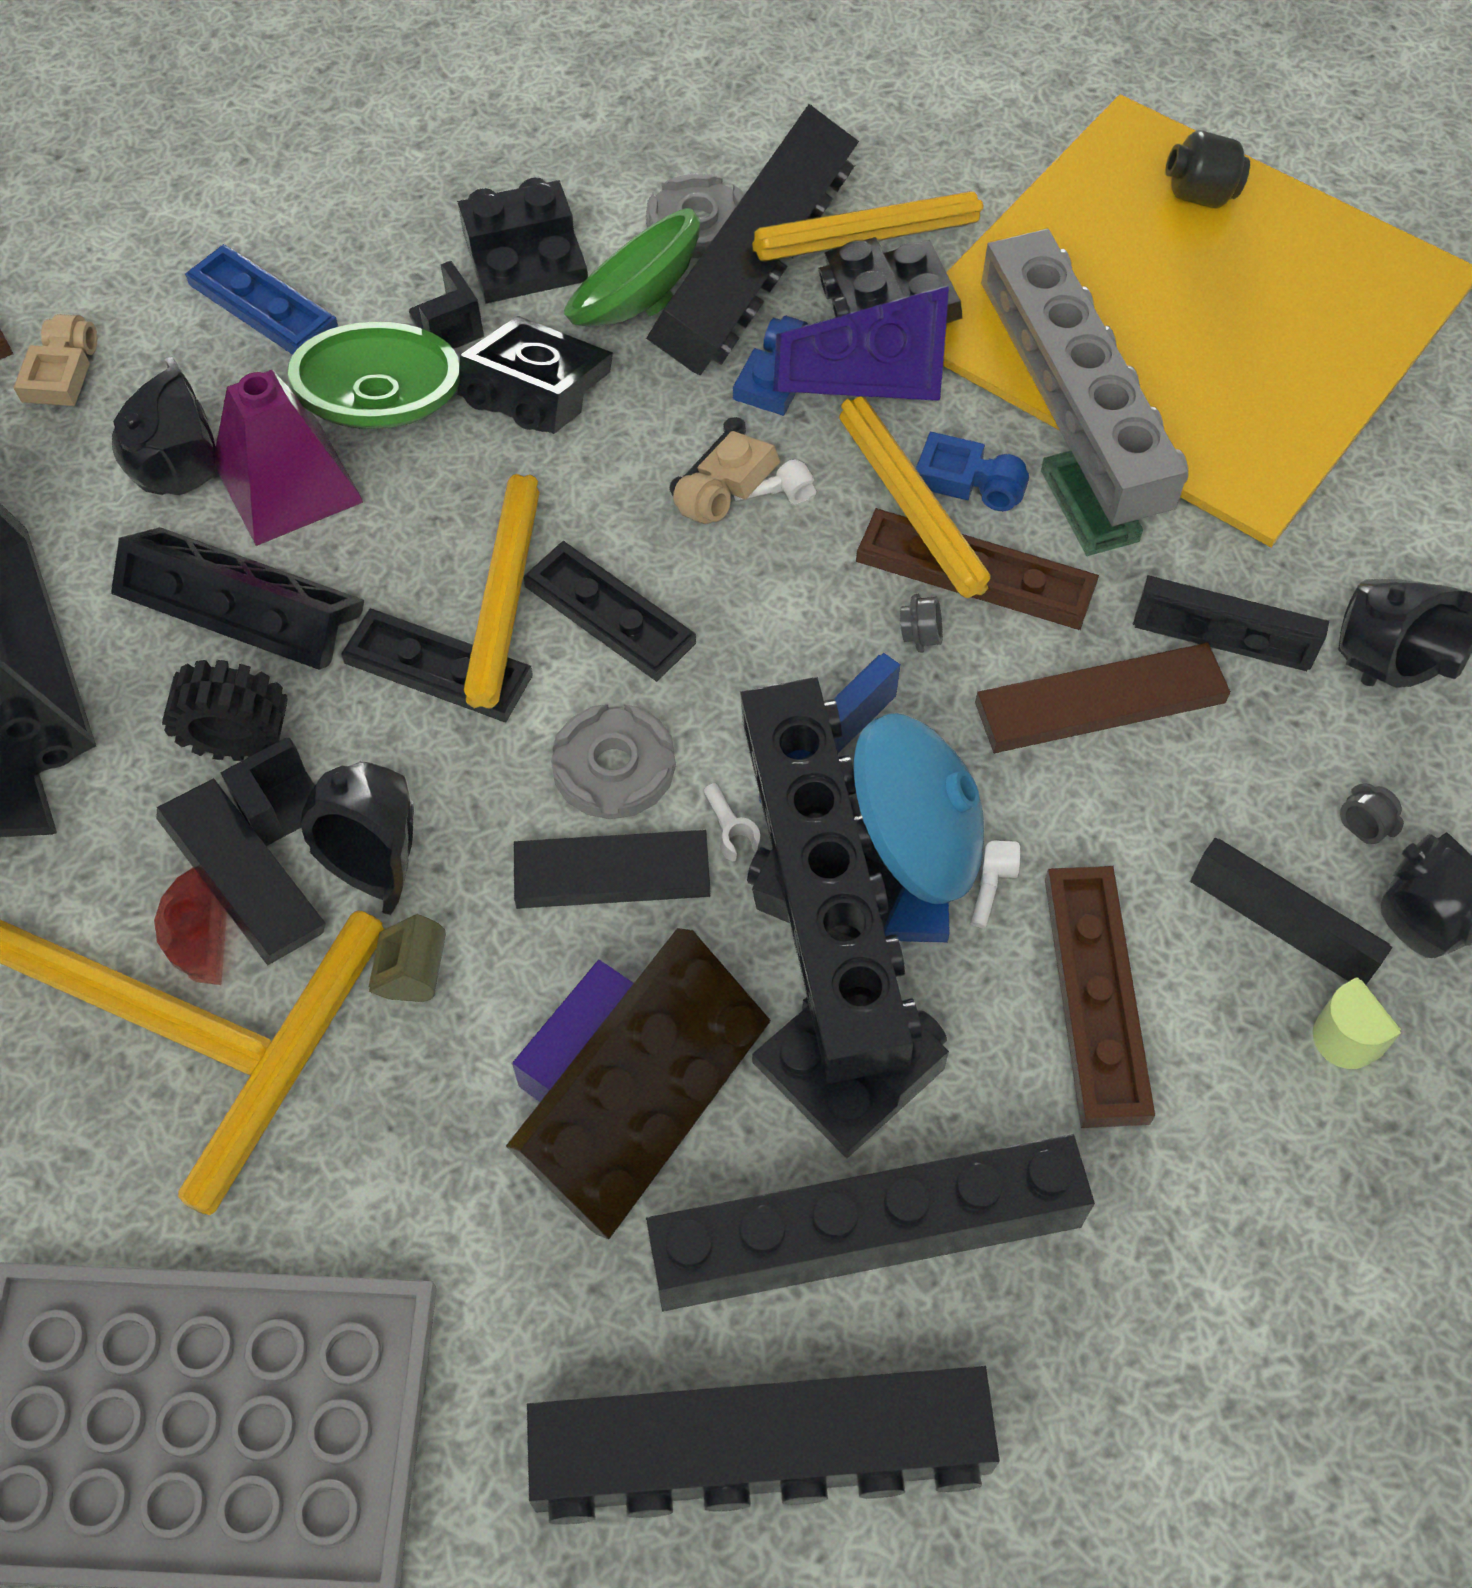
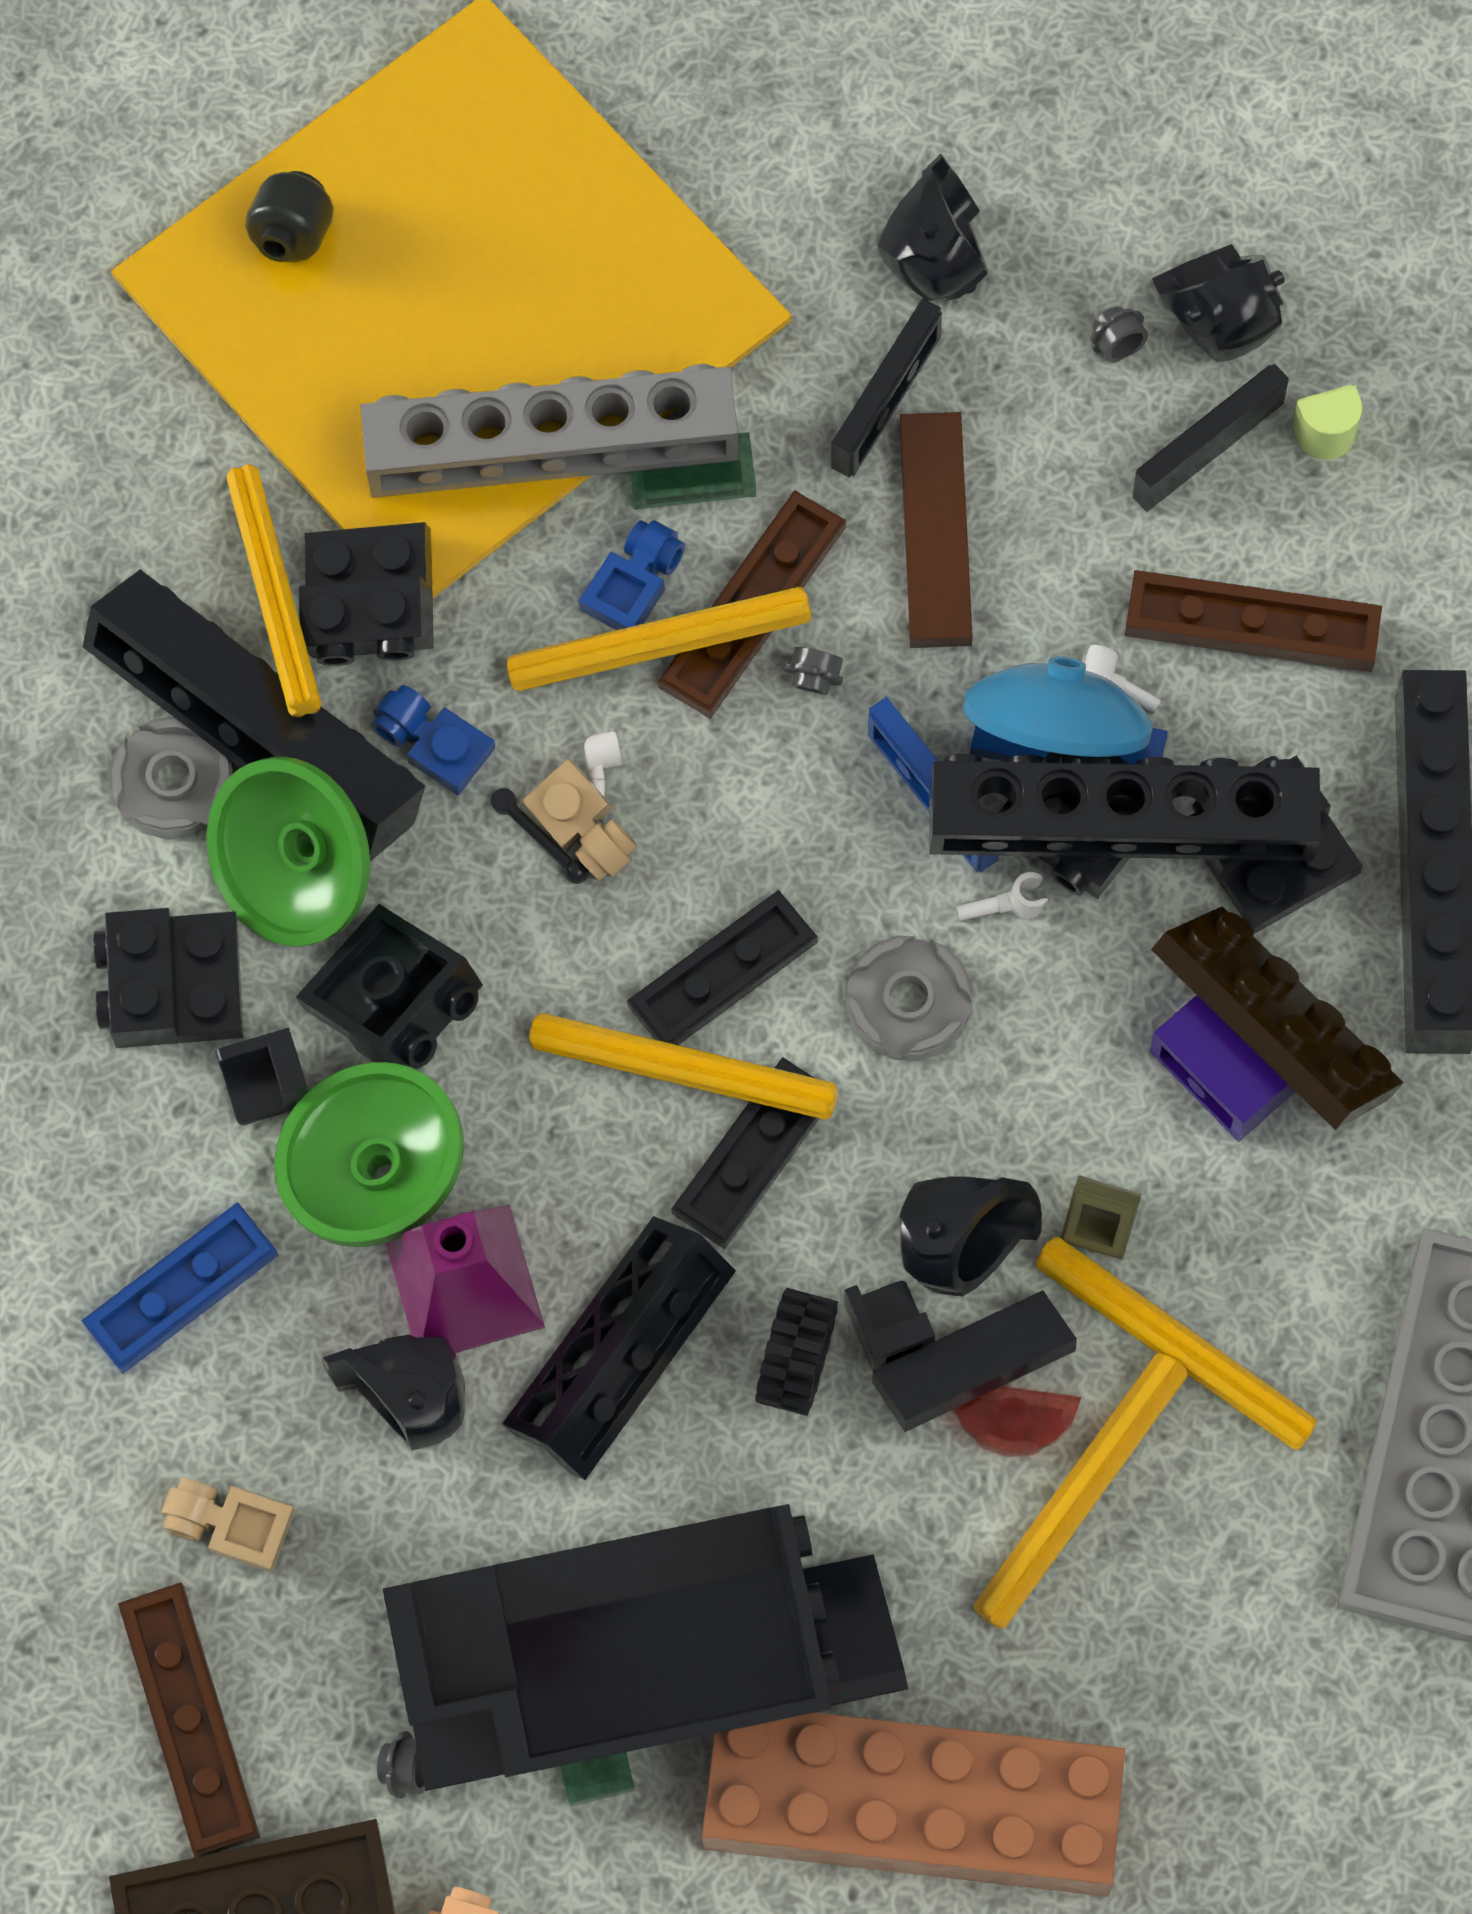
camera: 75 degrees left, 10 degrees up
(611, 869) = (1032, 1020): black tile -> none
(869, 352) = (469, 633): dark purple wing -> none

